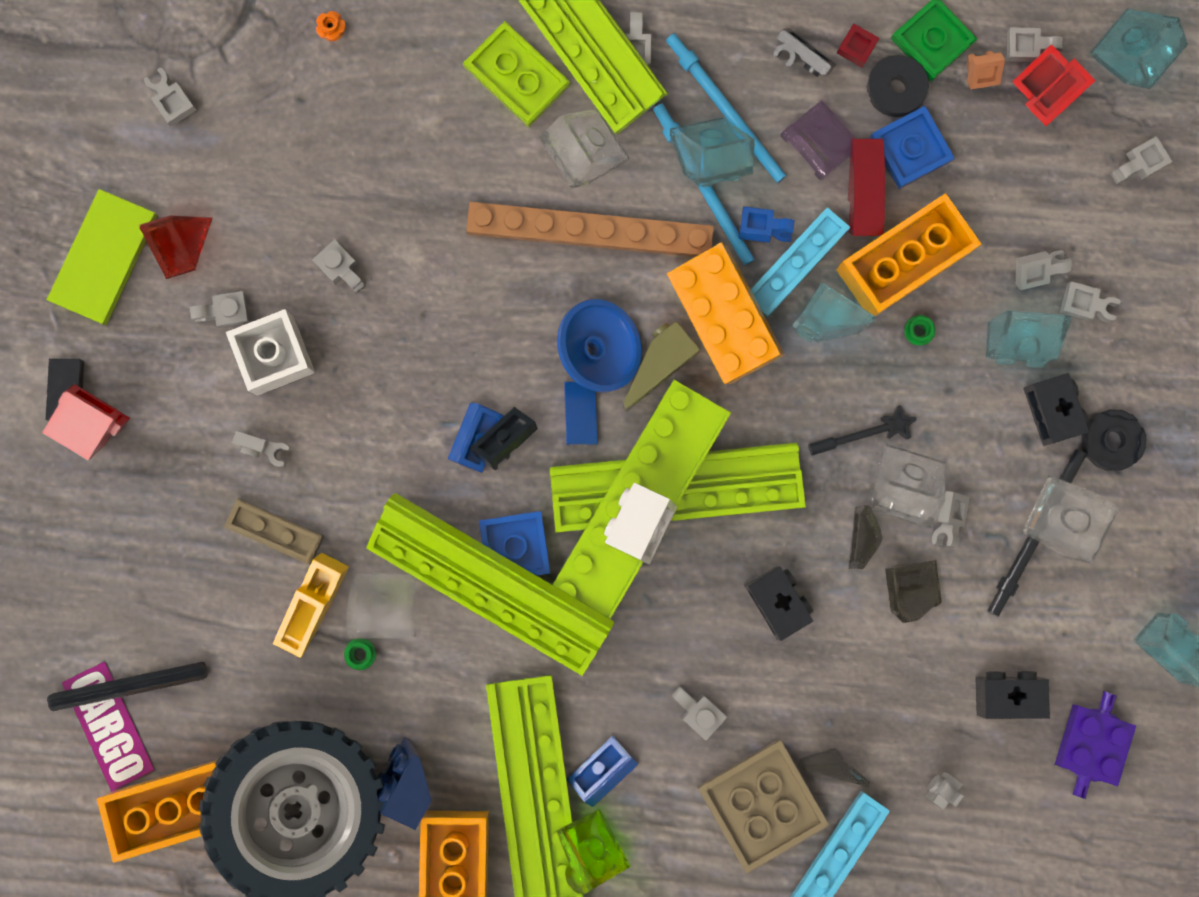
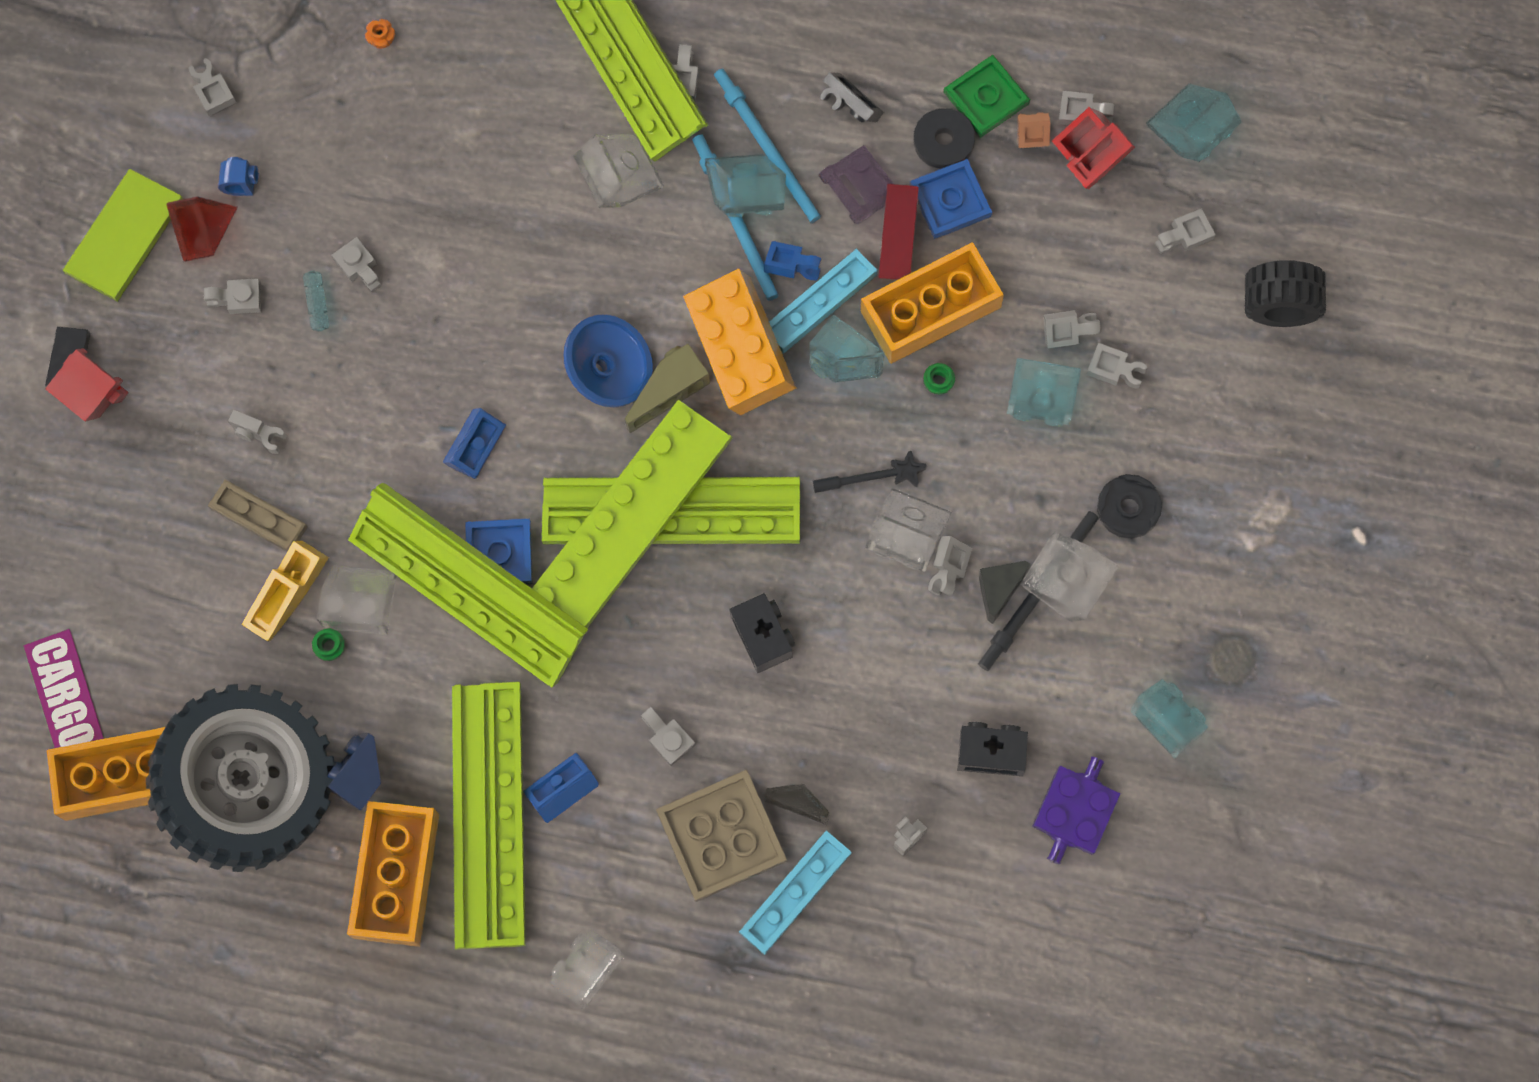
camera: 15 degrees right, 10 degrees down
(127, 686) = (89, 653): black axle -> none
(208, 188) = (237, 177): none -> blue plate
(270, 352) = (278, 338): white brick -> none
(302, 308) = (316, 301): none -> clear light blue axle
(504, 438) = (500, 443): black plate -> none
(516, 74) = (560, 95): lime tile -> none
(580, 415) = (581, 429): blue slope -> none
(588, 229) = (610, 250): medium nougat plate -> none
(591, 852) = (537, 860): clear neon green slope -> none
(640, 522) = (623, 528): white brick -> none
(857, 45) = (907, 95): dark red plate -> none
(865, 537) = (858, 576): clear smoke slope -> none
(913, 589) = (901, 634): clear smoke slope -> none
(1002, 535) = (999, 585): none -> pearl dark grey slope
(1055, 425) = (1066, 485): black brick -> none

